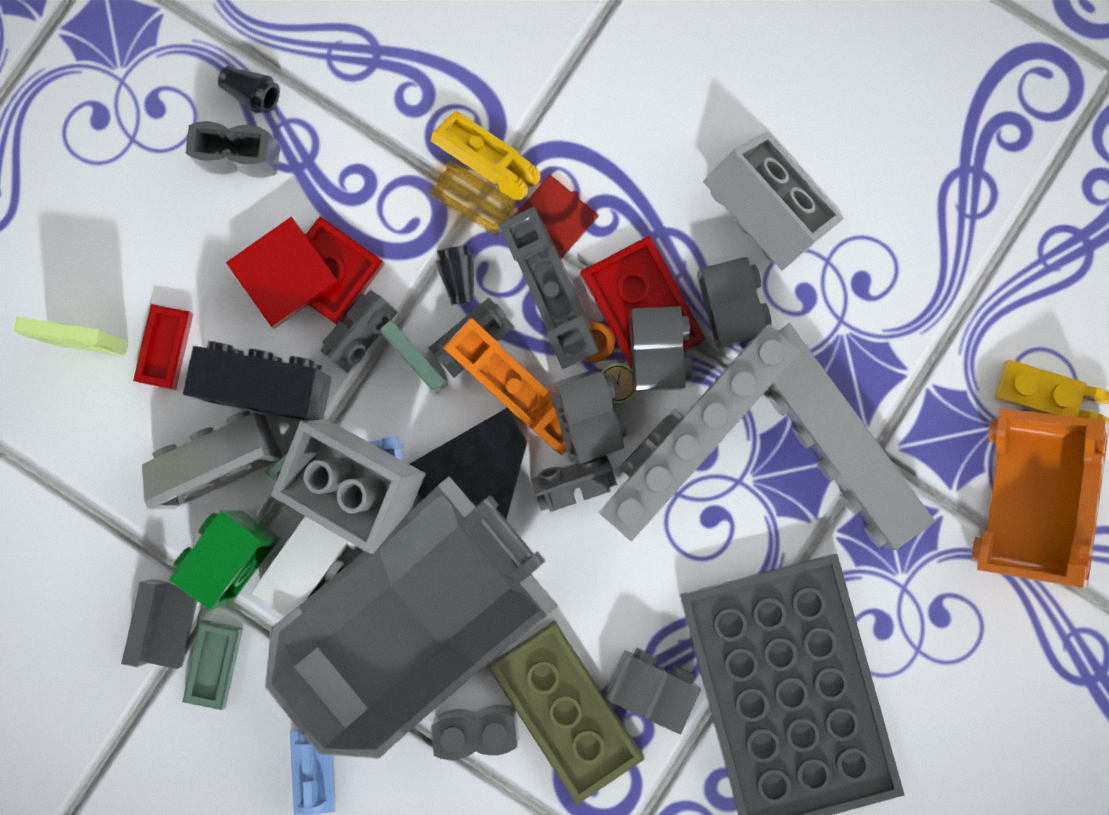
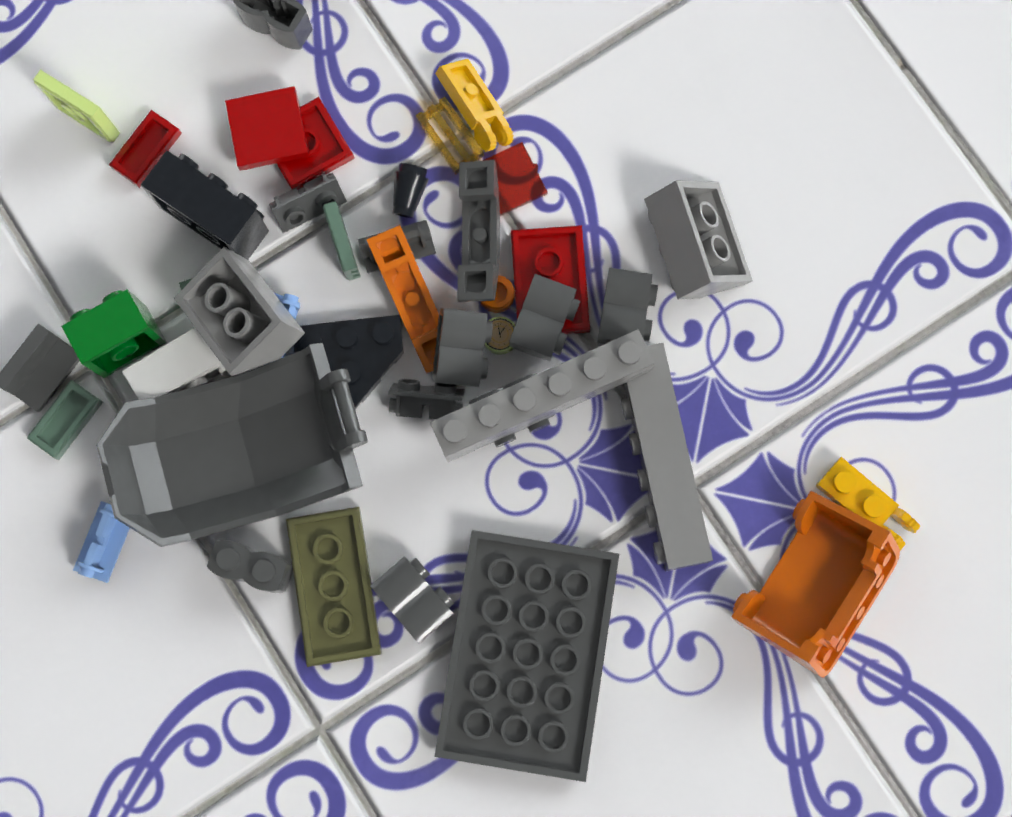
camera: 30 degrees right, 5 degrees down
(208, 461) = (138, 253): light grey slope -> none

